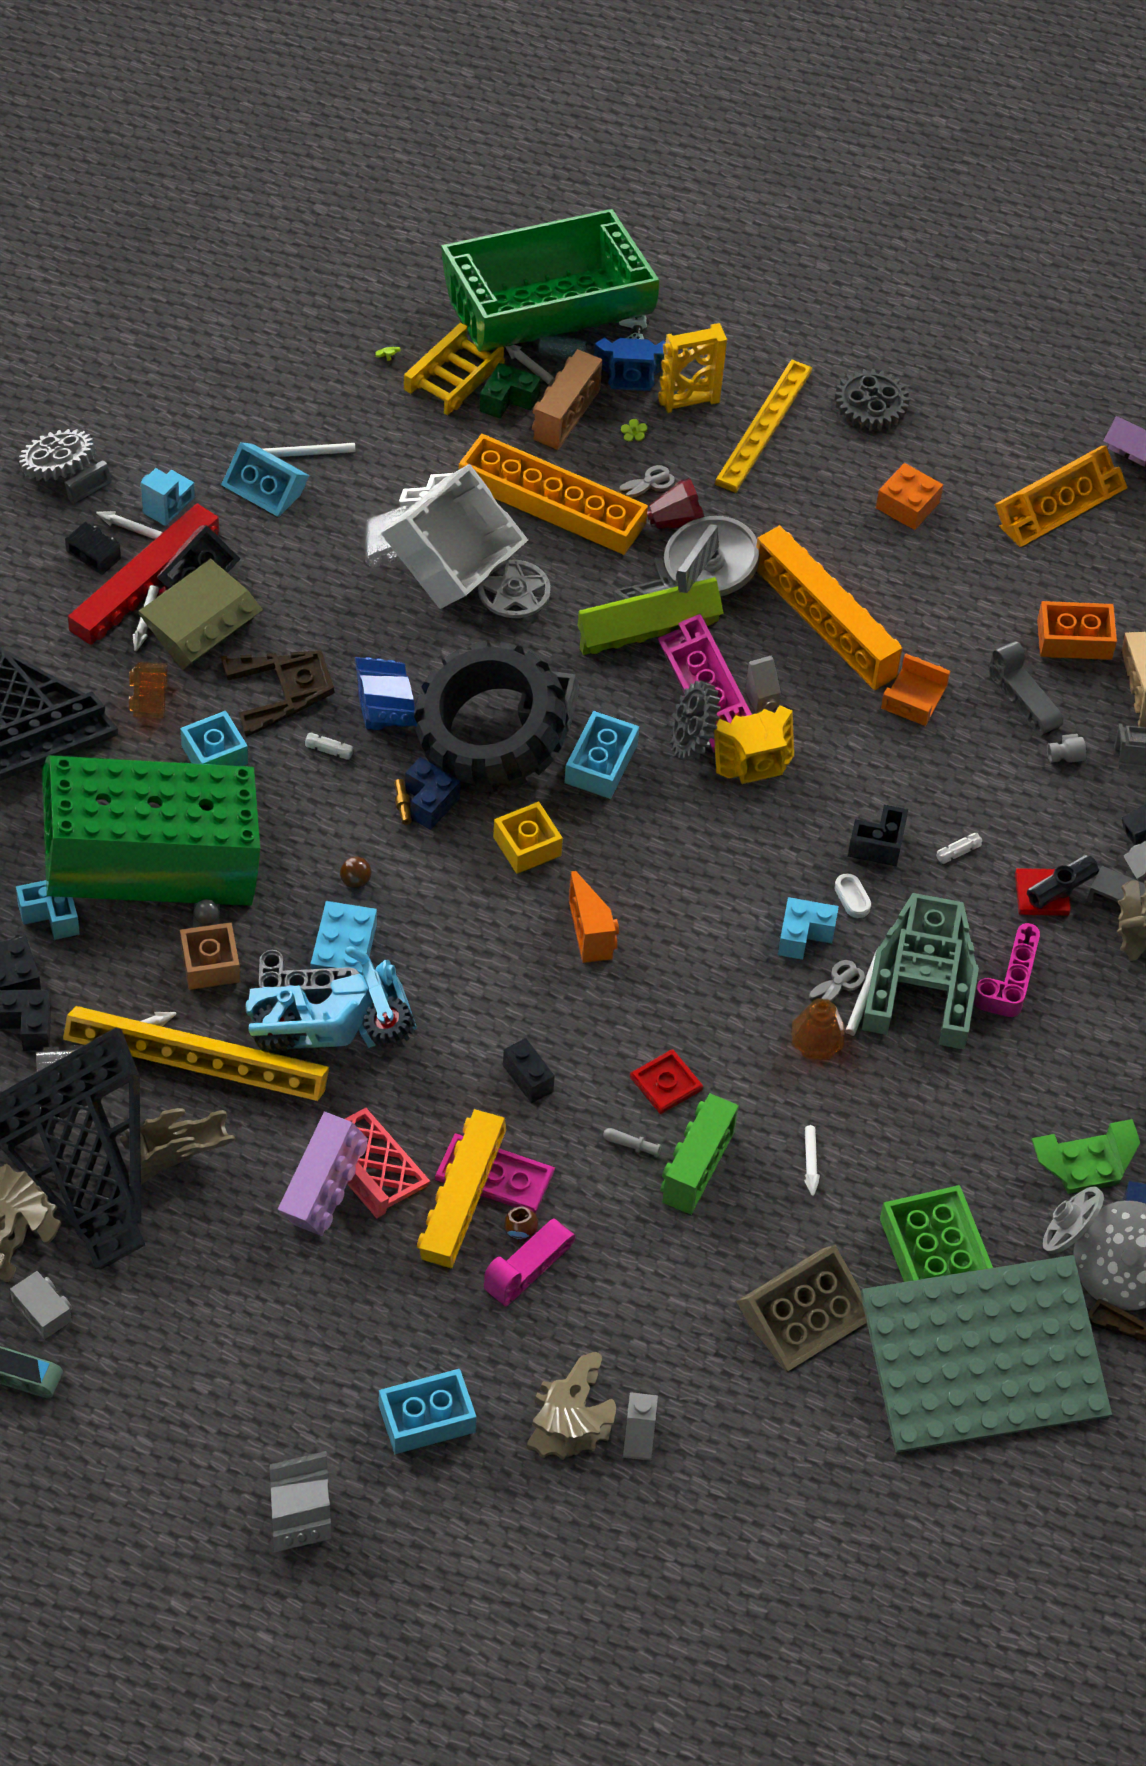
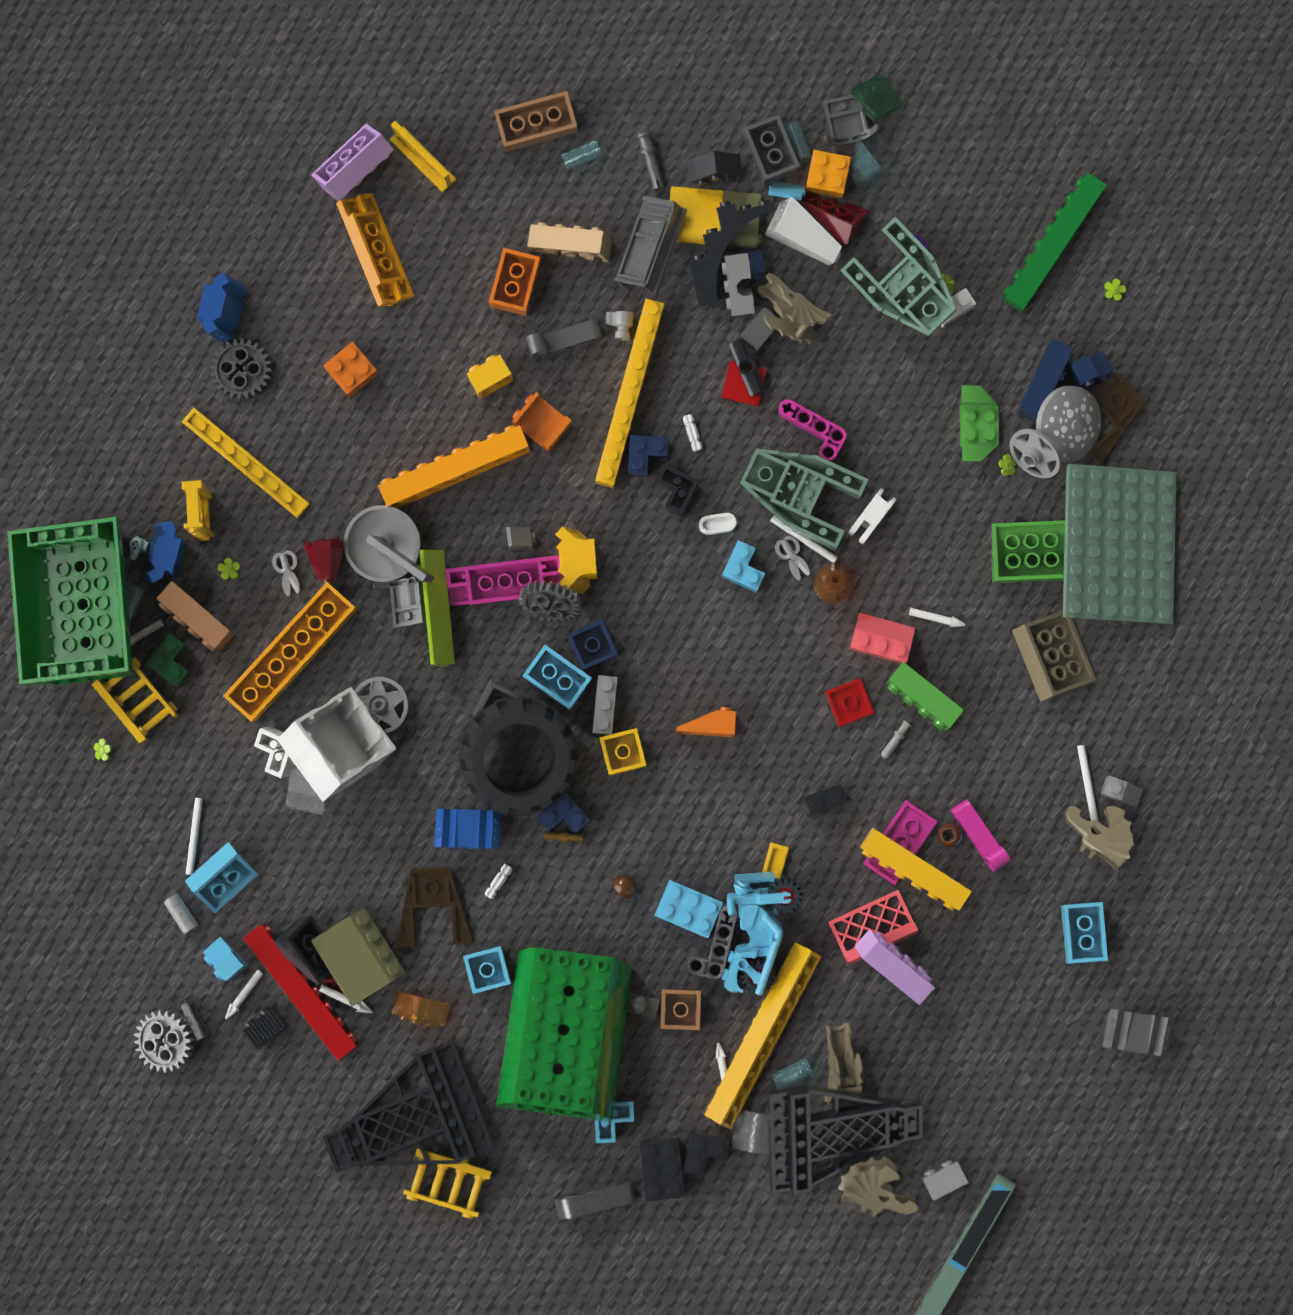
camera: 70 degrees left, 30 degrees up
(152, 1098) = (792, 1073): none -> clear light blue axle
(212, 450) = (181, 914): none -> light grey axle
(432, 1035) = (775, 859): none -> yellow tile
(600, 807) = (605, 705): none -> light grey arch
(642, 1385) = (1087, 783): none -> white bar
(653, 783) = (592, 645): none -> dark blue brick
(762, 1099) = (882, 638): none -> coral slope
(917, 794) = (645, 448): none -> dark blue brick
(921, 1058) = (872, 516): none -> white piece
(937, 364) = (222, 307): none -> blue slope
(951, 622) = (489, 376): none -> yellow brick
(984, 769) = (629, 393): none -> yellow brick
(1046, 1205) = (1007, 465): none -> lime plant

